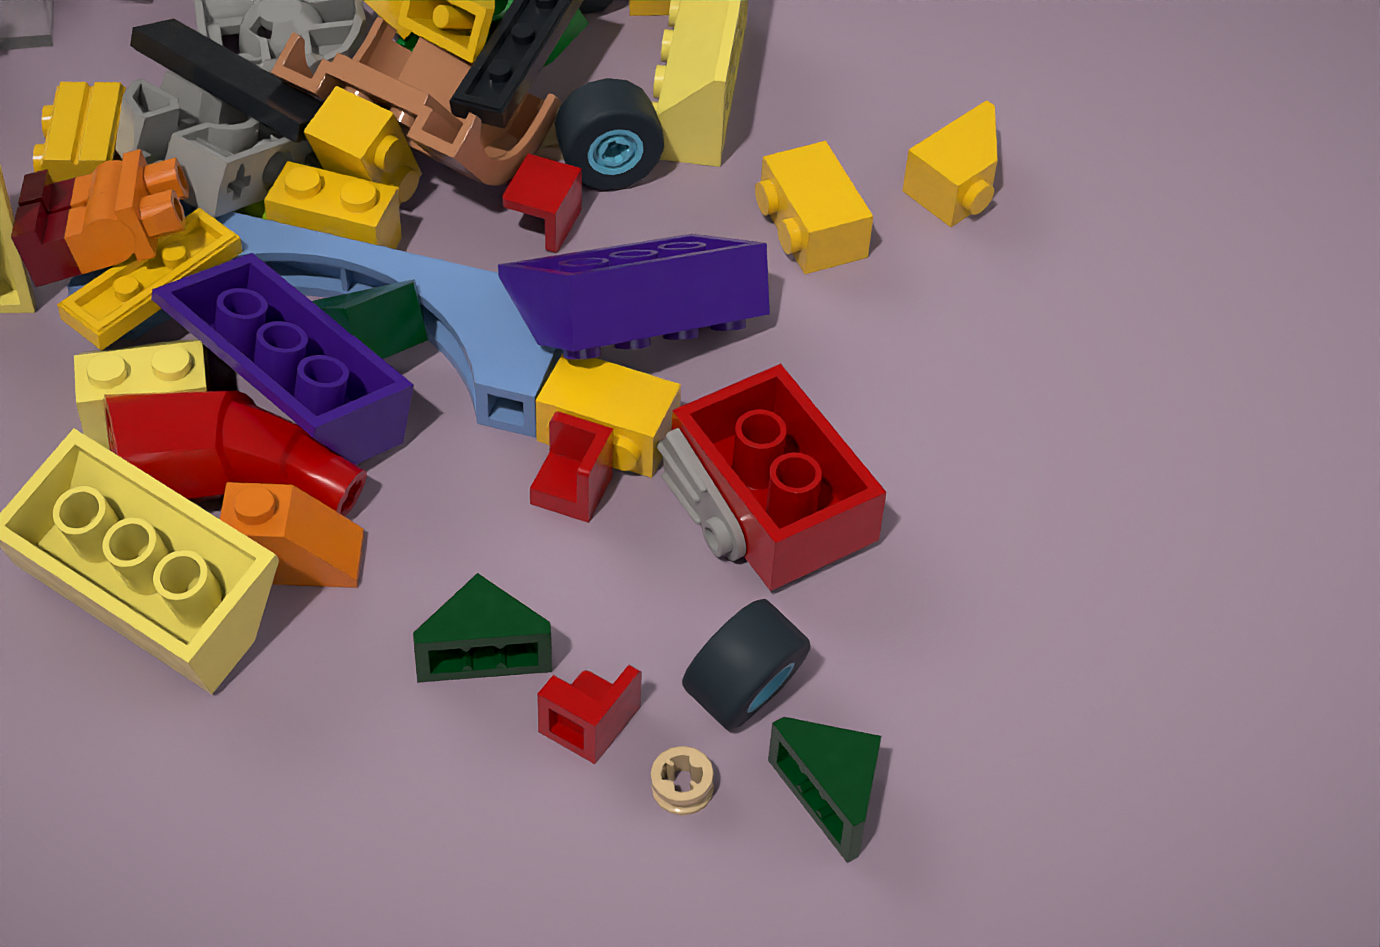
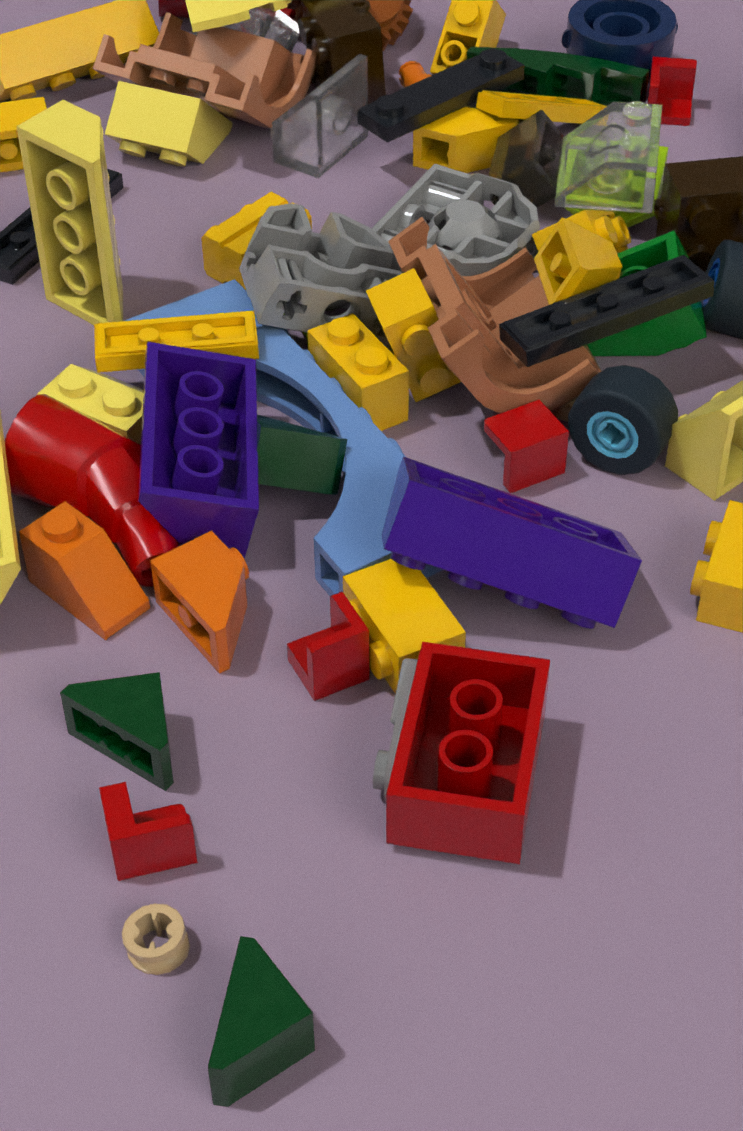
camera: 45 degrees right, 5 degrees down
(97, 216) = (166, 279): orange hips -> none
(227, 76) = (364, 229): black tile -> none
(422, 493) = (204, 595): none -> orange slope
(745, 663) = (281, 878): black wheel -> none

